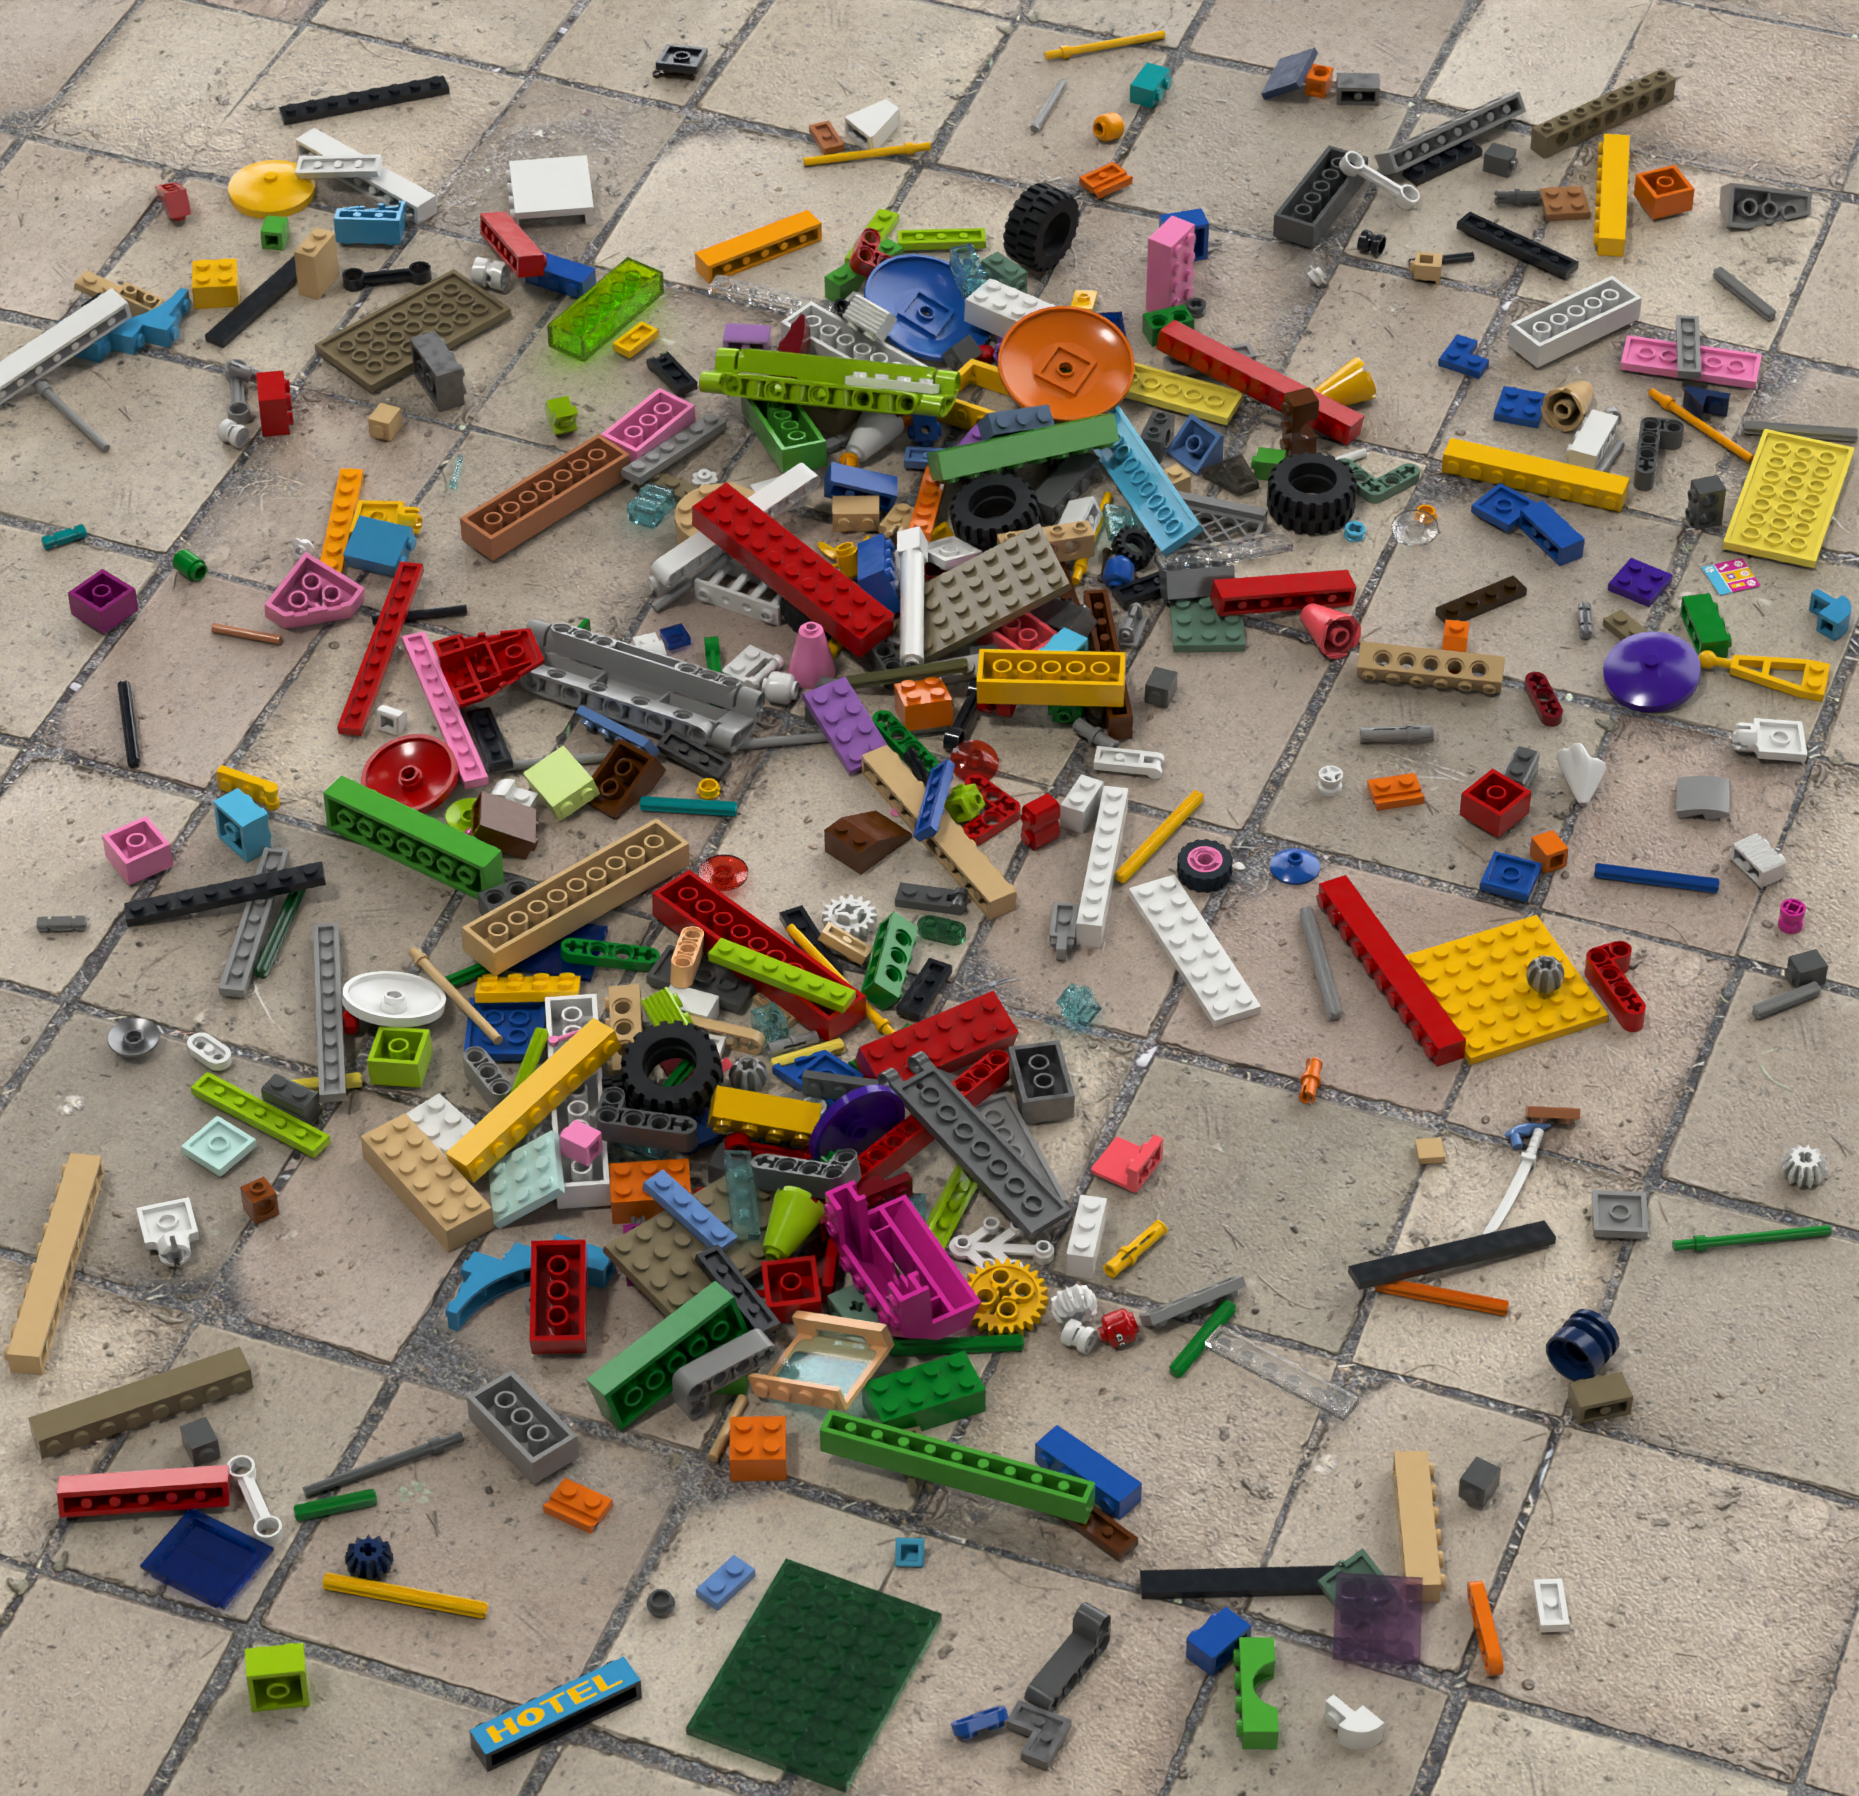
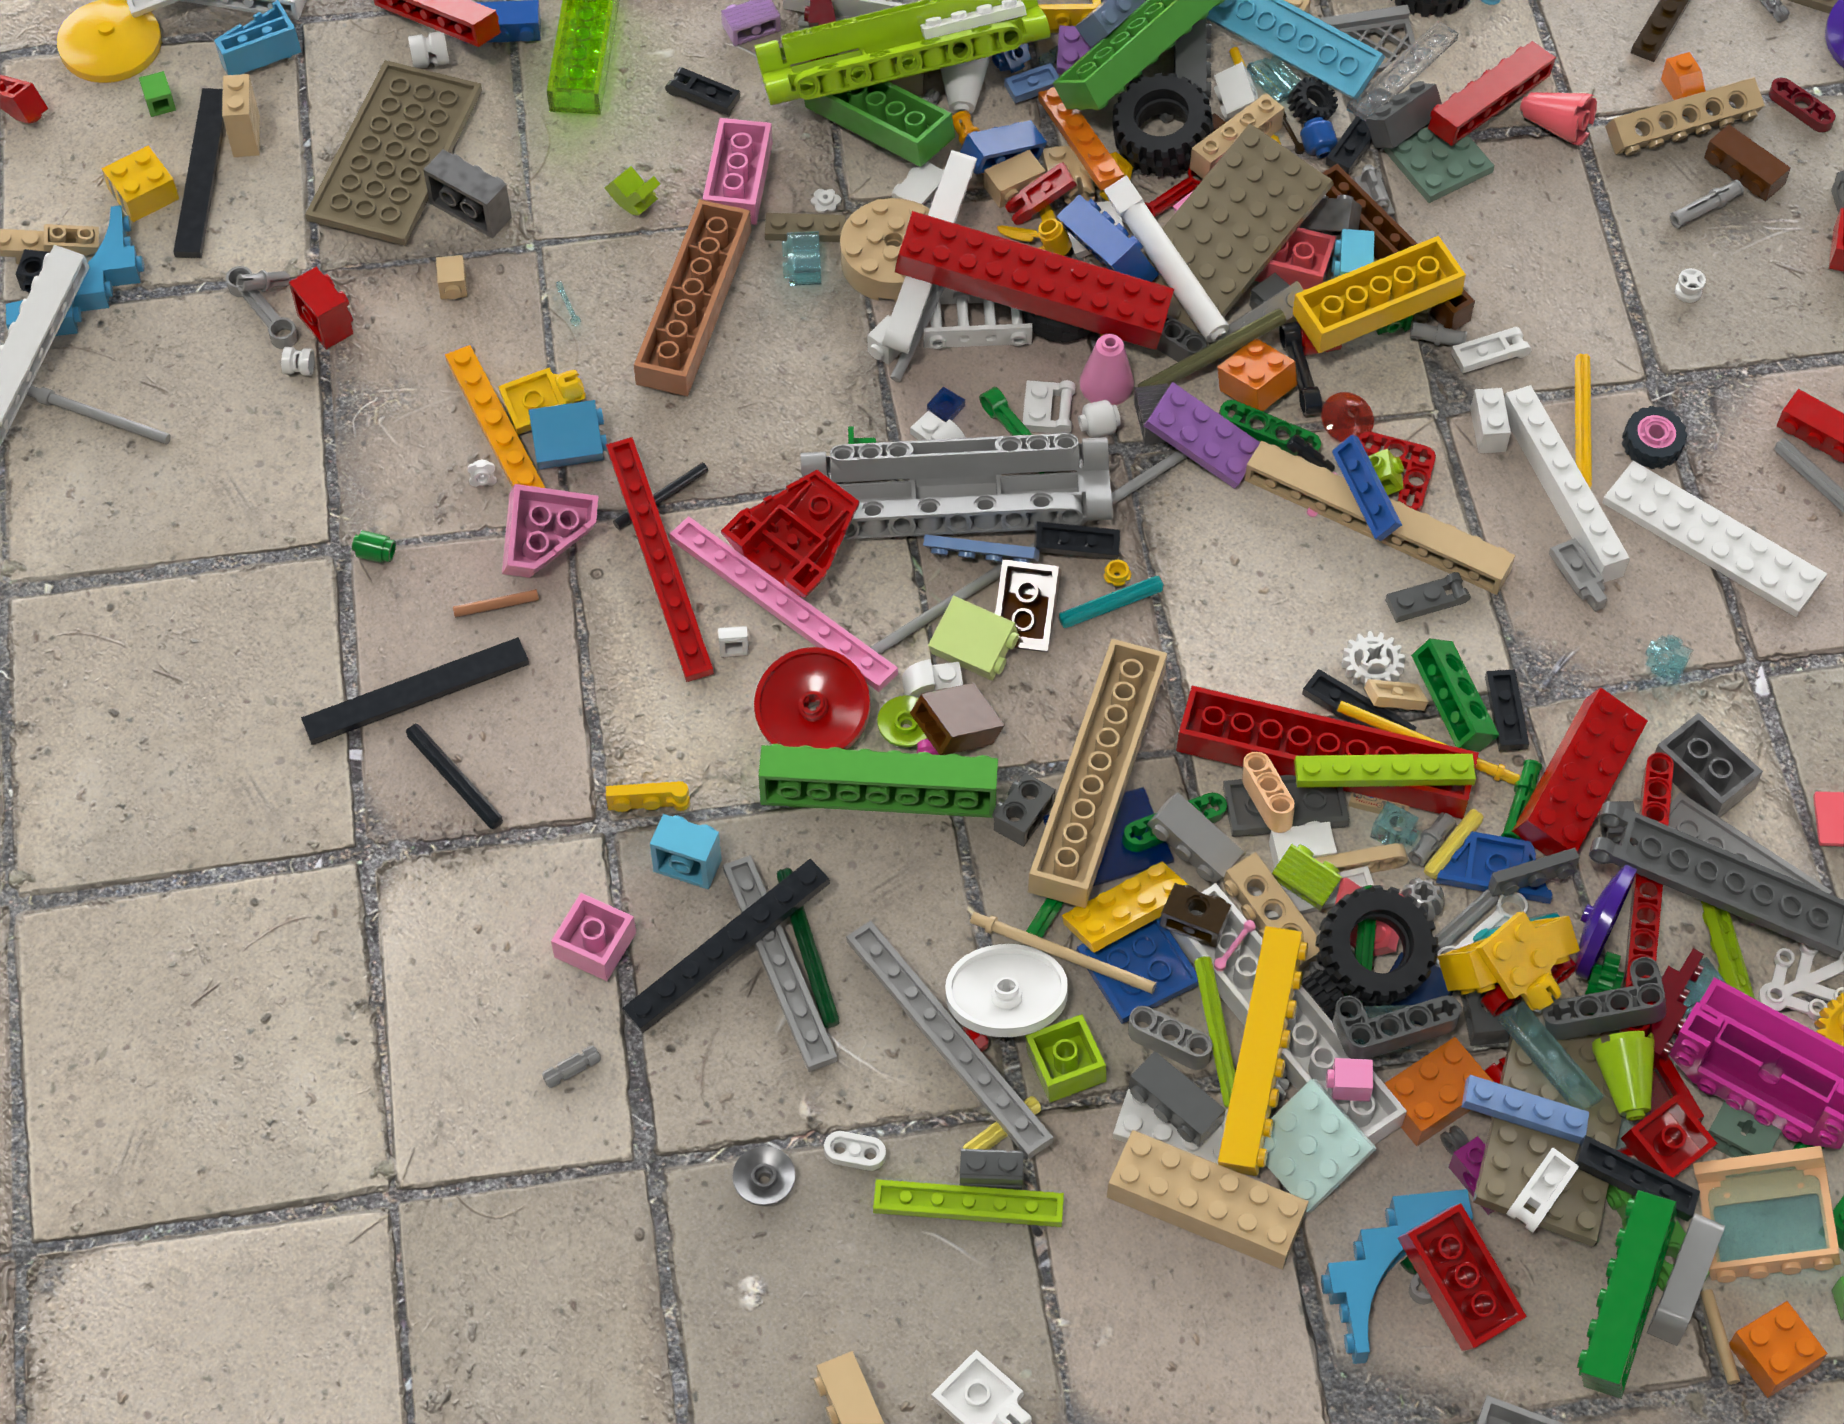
camera: 30 degrees left, 15 degrees up
(64, 536) = (205, 572): teal axle -> none
(103, 601) = (317, 637): magenta brick -> none
(146, 663) = (415, 691): none -> black tile
(218, 1146) = (955, 1266): light aqua plate -> none
(259, 1200) = (1054, 1314): dark orange brick -> none
(356, 279) = (316, 97): black piece -> none
(450, 1106) = (1176, 1099): none -> dark grey brick
(489, 739) = (855, 618): black tile -> none
(558, 1000) = (1202, 928): none -> dark brown brick
(606, 958) = (1195, 838): none -> light grey brick
(635, 339) = (636, 66): yellow plate -> none
(653, 1259) = (1543, 1189): none -> white plate
(673, 449) = (776, 182): light grey plate -> none
(724, 872) = (1211, 657): clear red dish -> none
(756, 1113) = (1521, 962): none -> yellow plate
(863, 526) = (1040, 193): none -> red hinge
(863, 839) = (1314, 560): reddish brown slope -> none
(941, 930) = (1466, 629): clear green plate -> none
(950, 552) = (1153, 184): white plate -> none
(1040, 821) = (1476, 461): red brick -> none
(1161, 687) = (1460, 246): dark grey brick -> none
(1294, 866) = (1726, 404): blue dish -> none
(1395, 791) = (1752, 269): orange plate -> none
(1454, 718) = (1747, 162): none -> reddish brown brick

